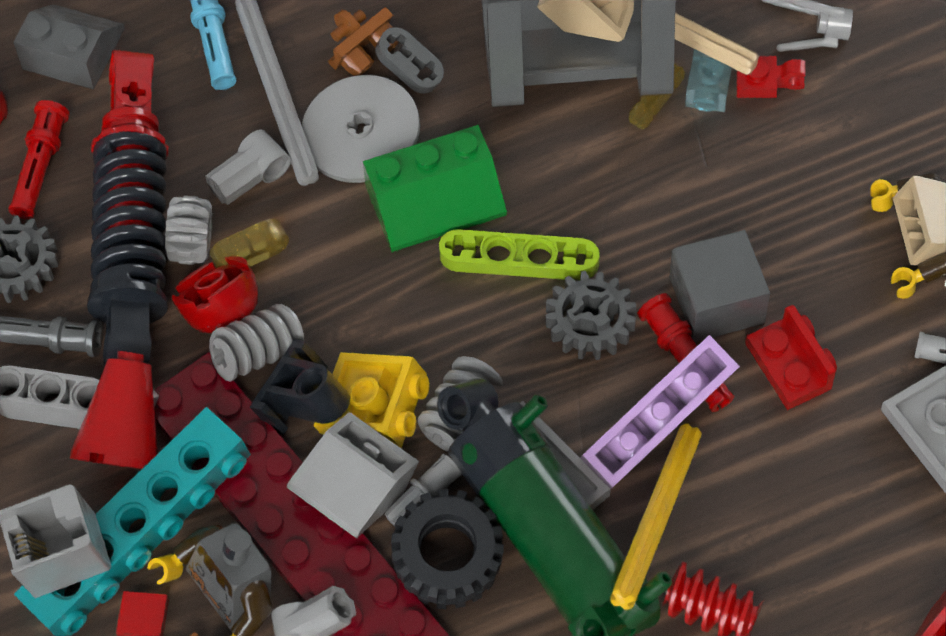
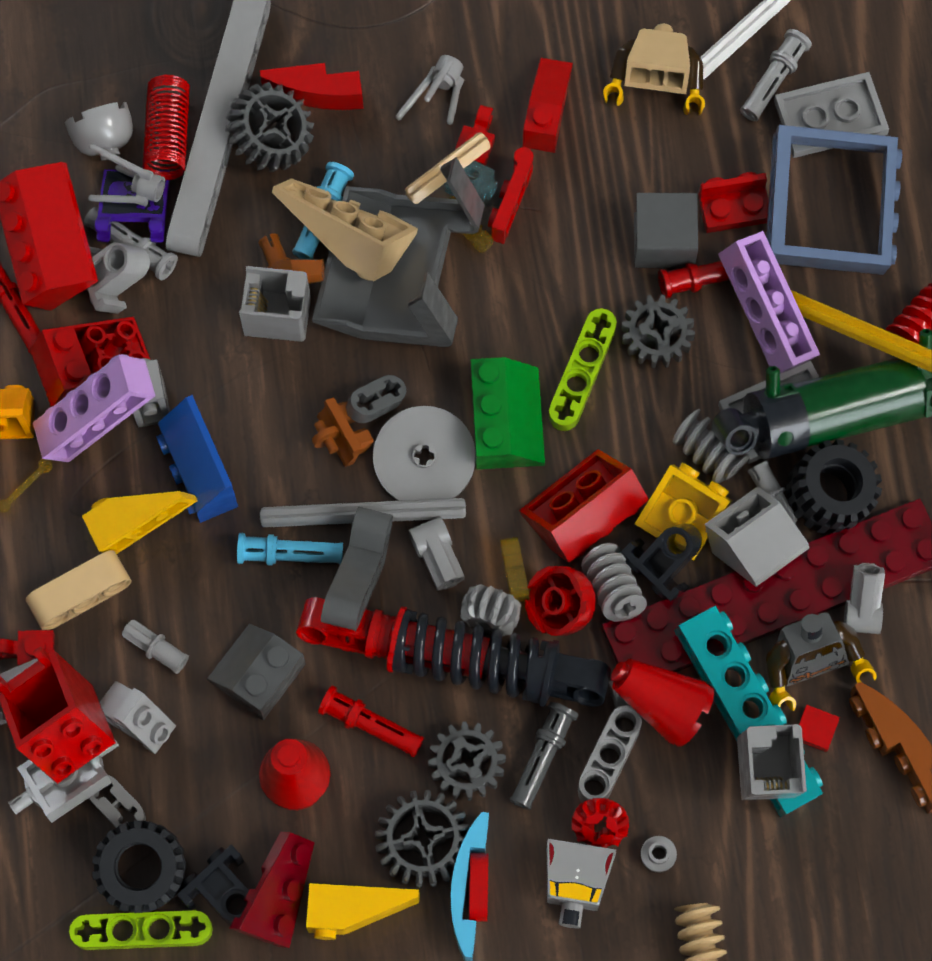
camera: 75 degrees left, 10 degrees up
(186, 86) = (358, 570): none -> dark grey beam
(346, 295) = (585, 505): none -> red slope
(707, 125) = (512, 195): none -> red plate
(816, 390) = (778, 197): none -> sand blue window
(836, 129) = (546, 105): none -> red slope

